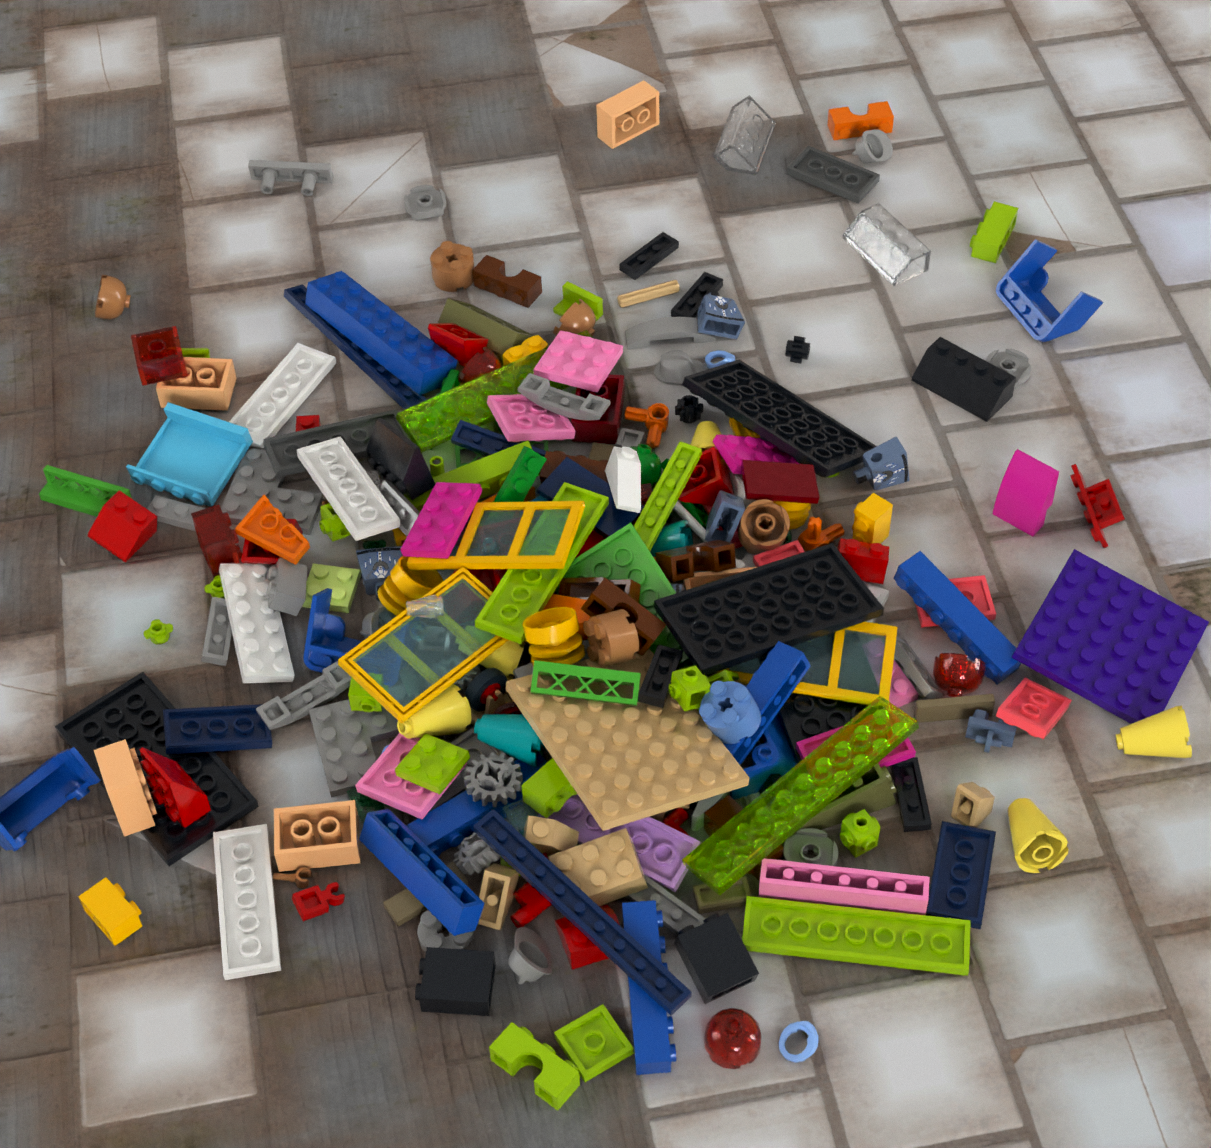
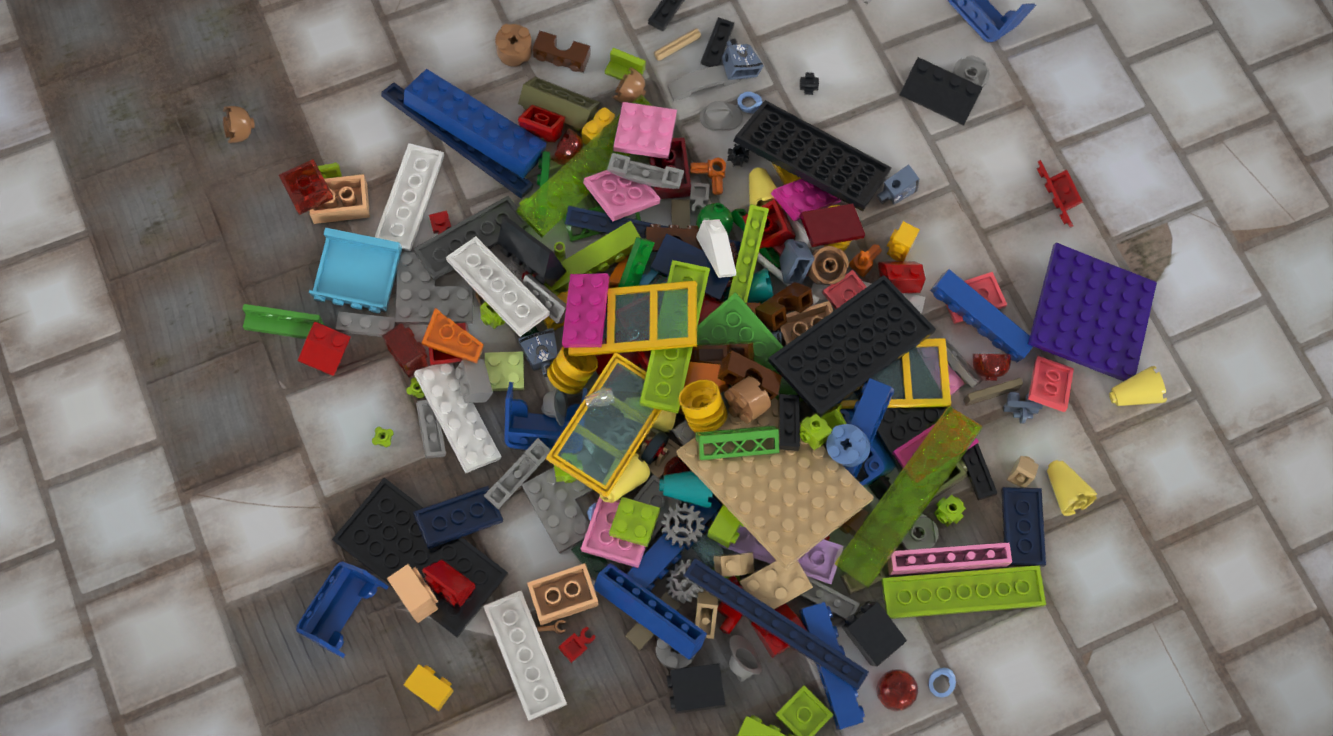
camera: 20 degrees left, 20 degrees up
(1026, 493) = (1012, 197): dark pink slope -> none

